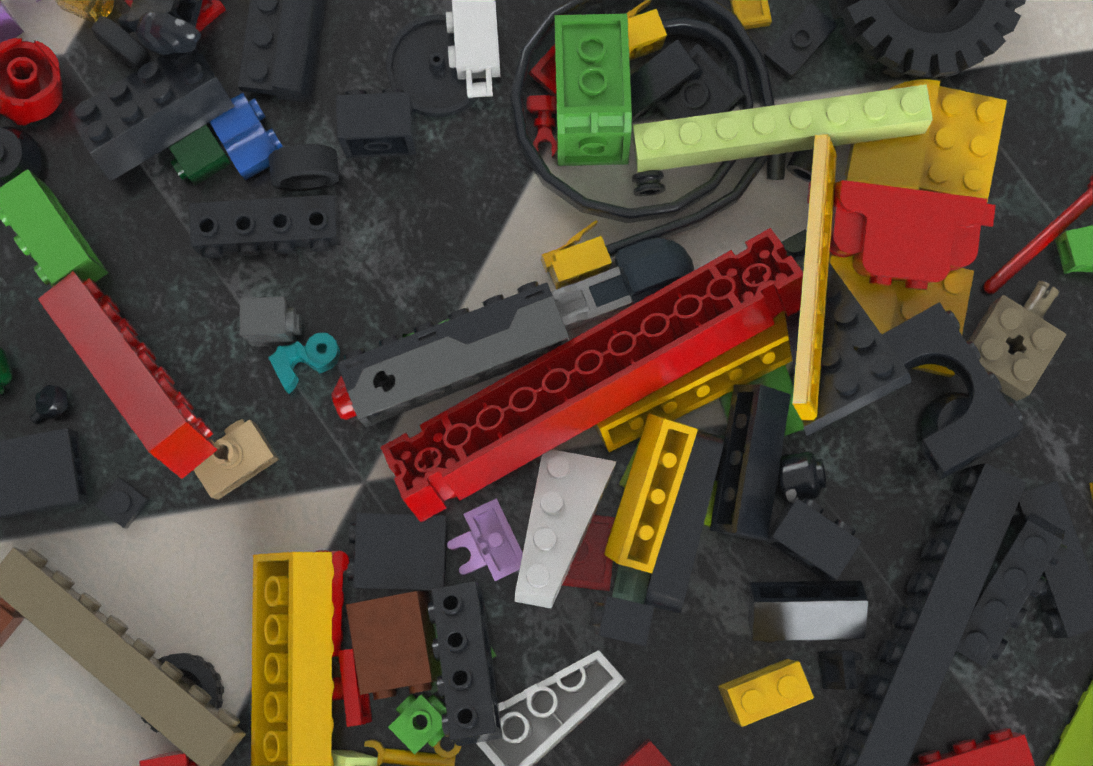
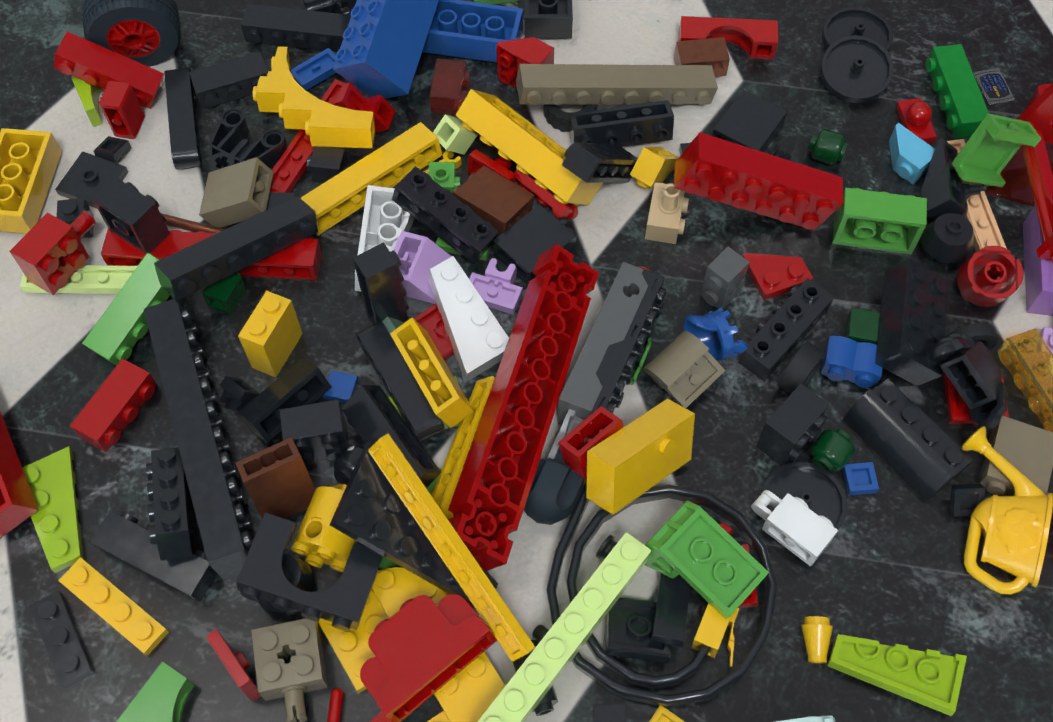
camera: 135 degrees right, 20 degrees down
(165, 603) = (623, 124): none -> black brick
(180, 524) = (653, 166): none -> yellow slope
(202, 292) = (775, 273): none -> red wing
(250, 561) = (599, 162): none -> black brick
(319, 353) = (690, 282): teal leg -> none
(347, 278) = (715, 333): none -> blue hair
(363, 73) = (832, 450): none -> dark green head
(364, 37) = (860, 478): none -> blue tile
(406, 277) = (684, 368): none -> dark tan brick
(544, 638) = (417, 257): none -> lavender slope
(548, 217) = (639, 456): none -> yellow brick
(583, 263) = (587, 435): none -> red brick
(734, 581) = (342, 386): none -> blue tile
(879, 432) = (317, 538): none -> yellow cylinder
(893, 515) = (277, 480): none -> copper brick
(1067, 379) = (235, 664): none -> red plate

